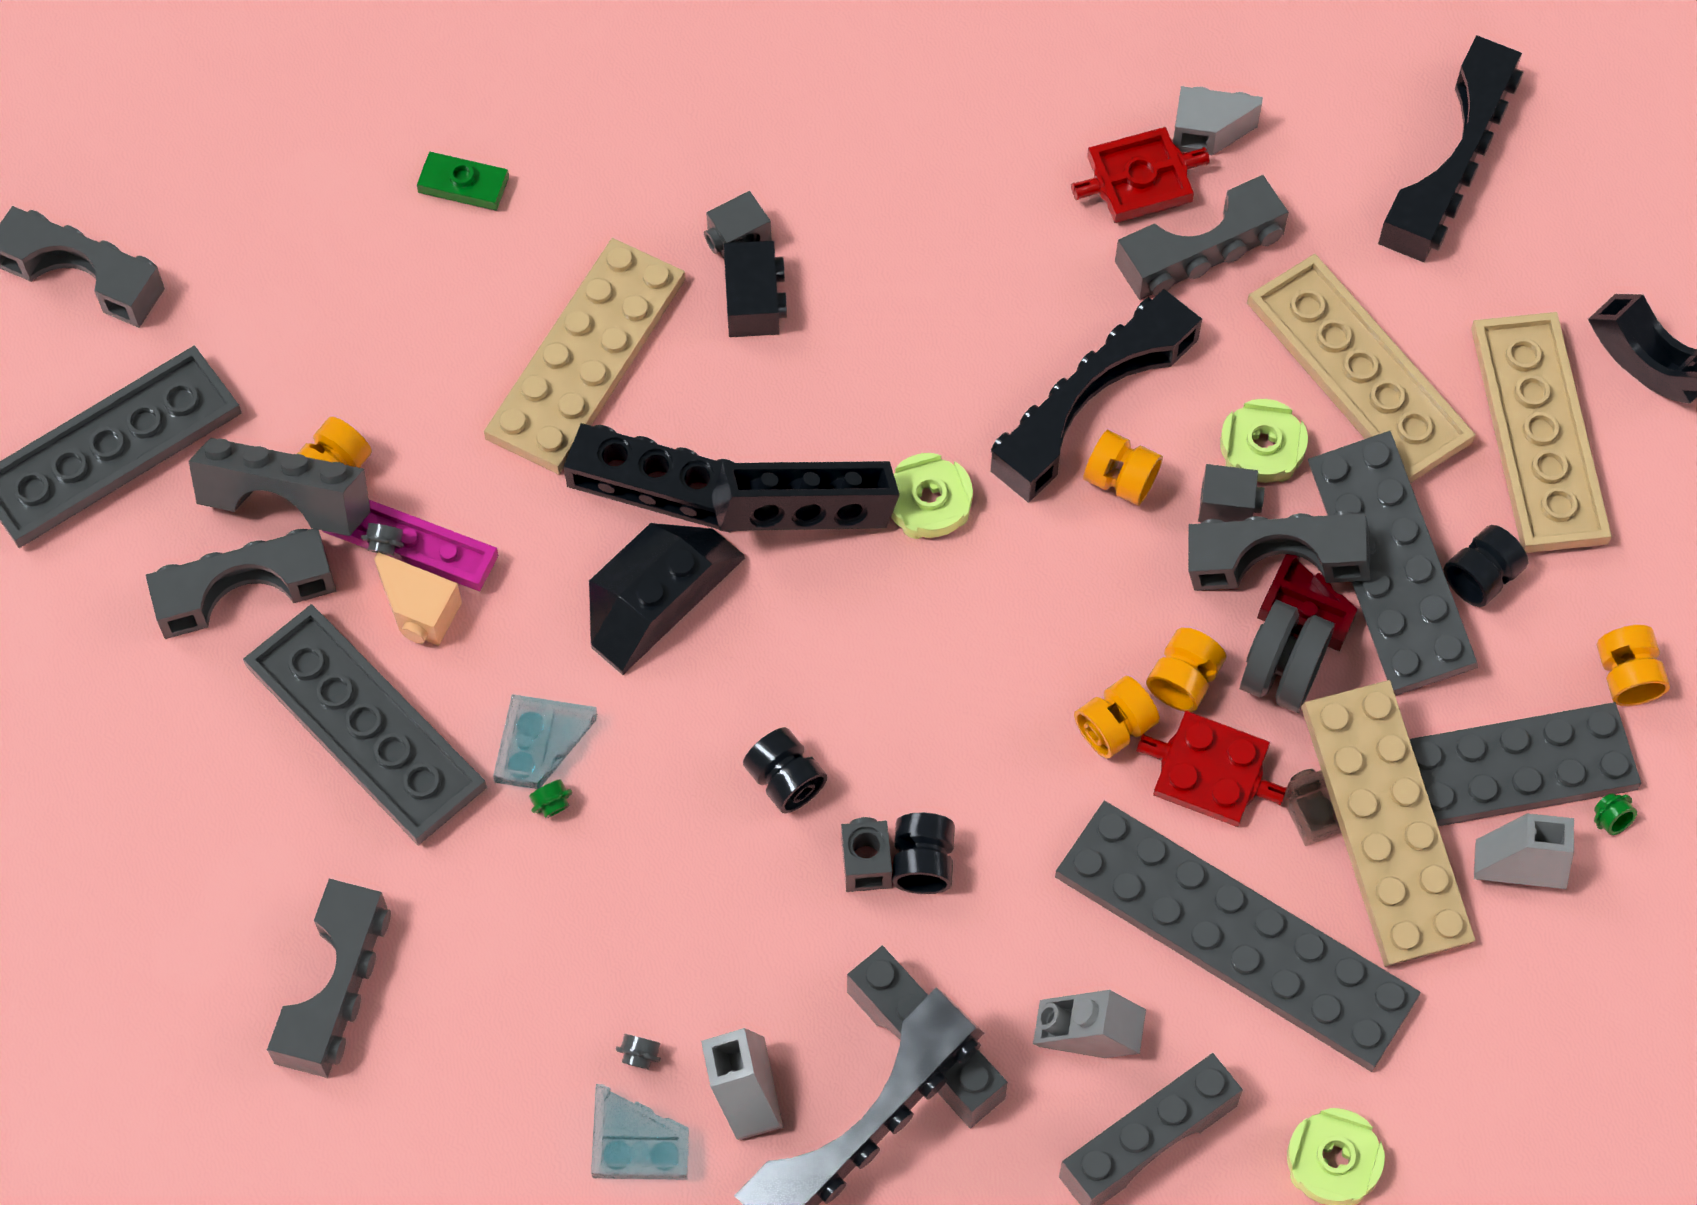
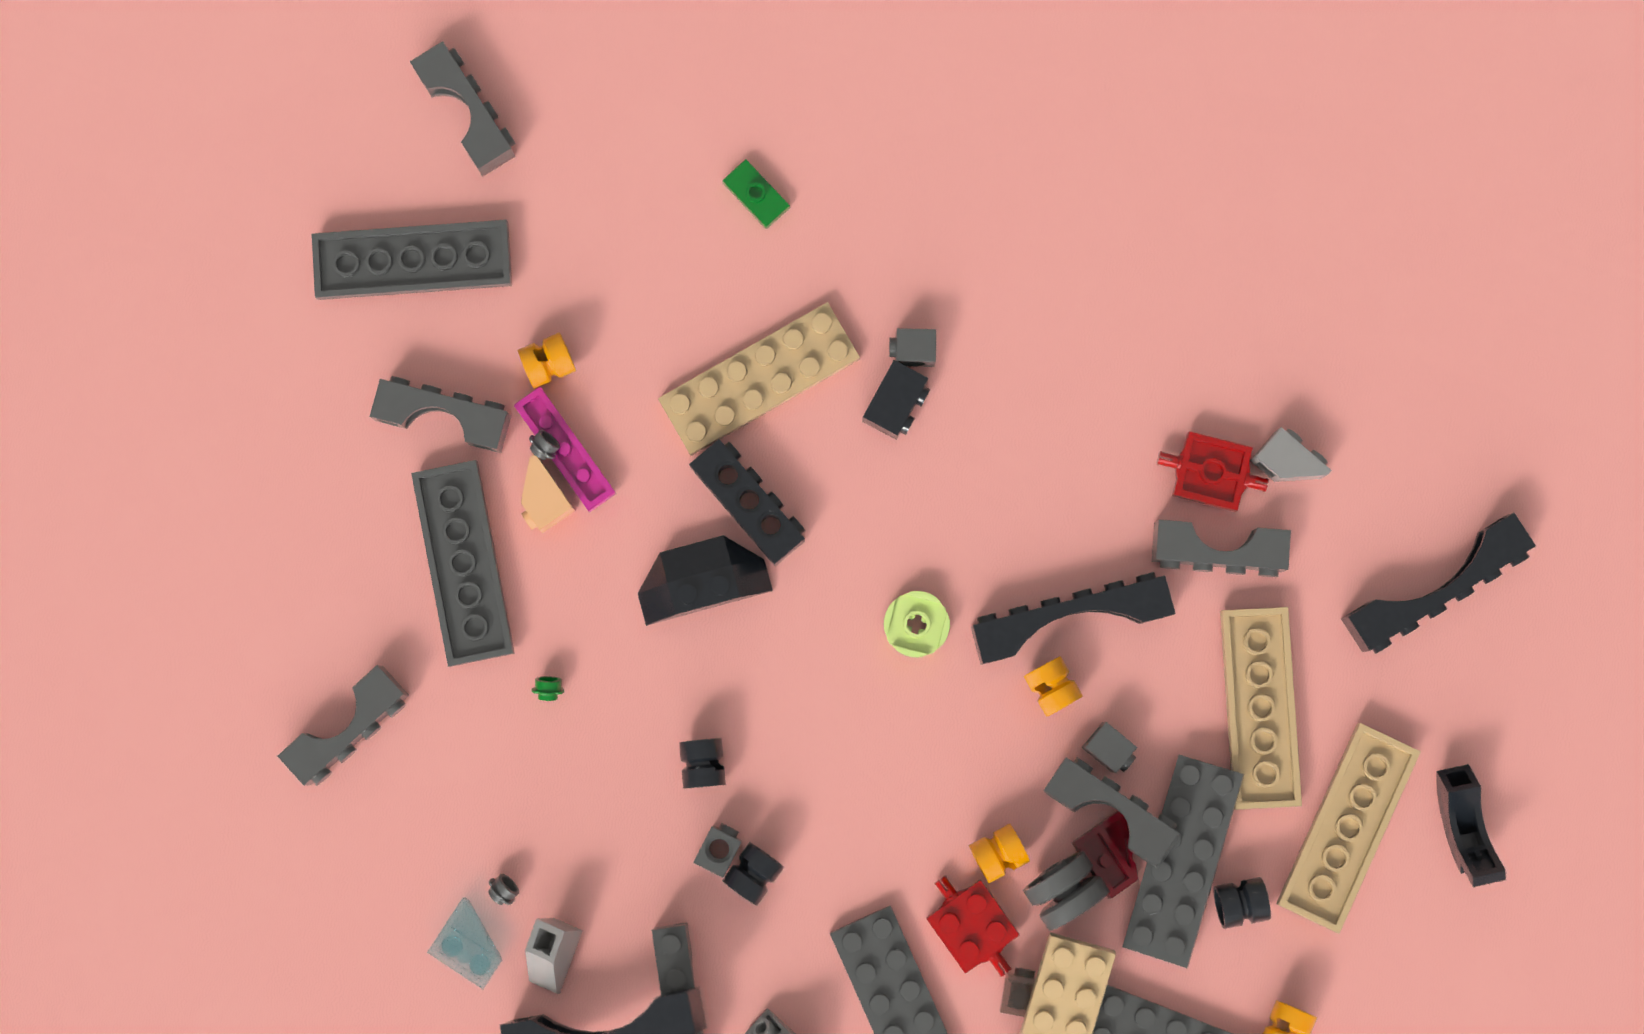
camera: 30 degrees right, 20 degrees up
(325, 492) = (520, 391): dark grey arch -> none
(539, 738) = (564, 642): clear light blue wing -> none
(804, 495) = (828, 585): black brick -> none
(1112, 720) = (945, 856): light orange wheel -> none
(1268, 418) = (1179, 719): yellowish green plate -> none

